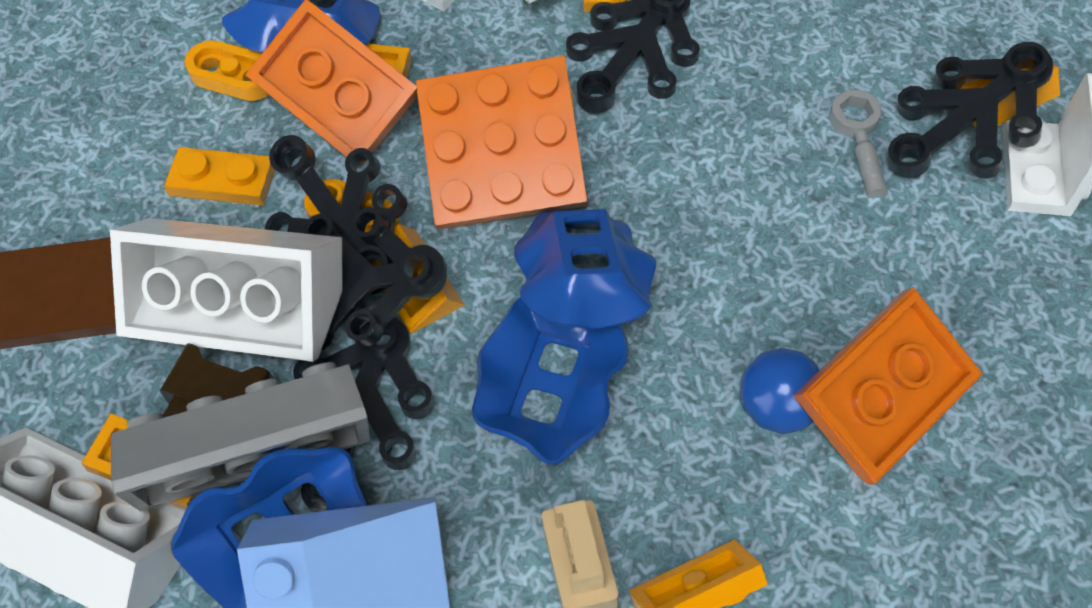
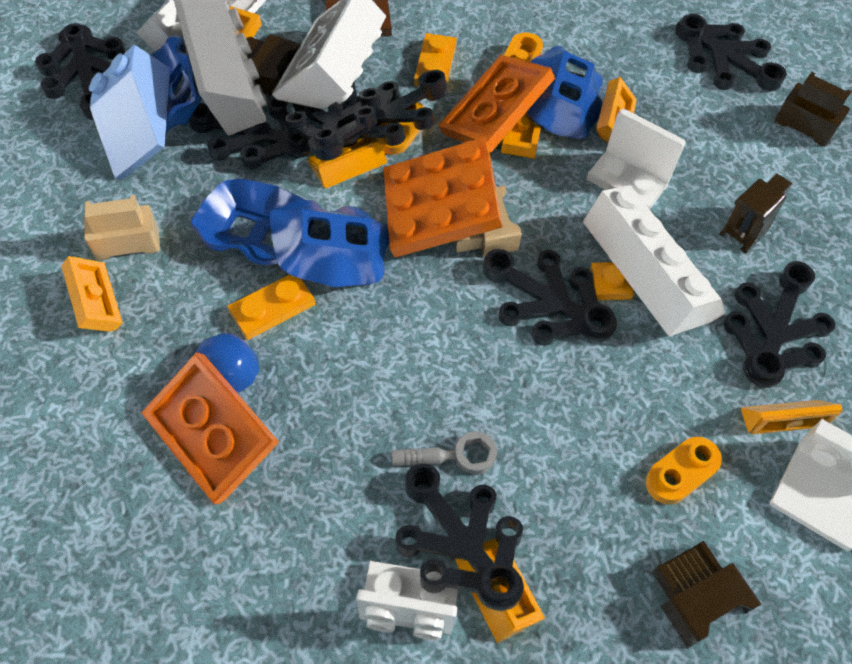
camera: 85 degrees right, 0 degrees up
(681, 347) = (271, 305): none -> light orange plate

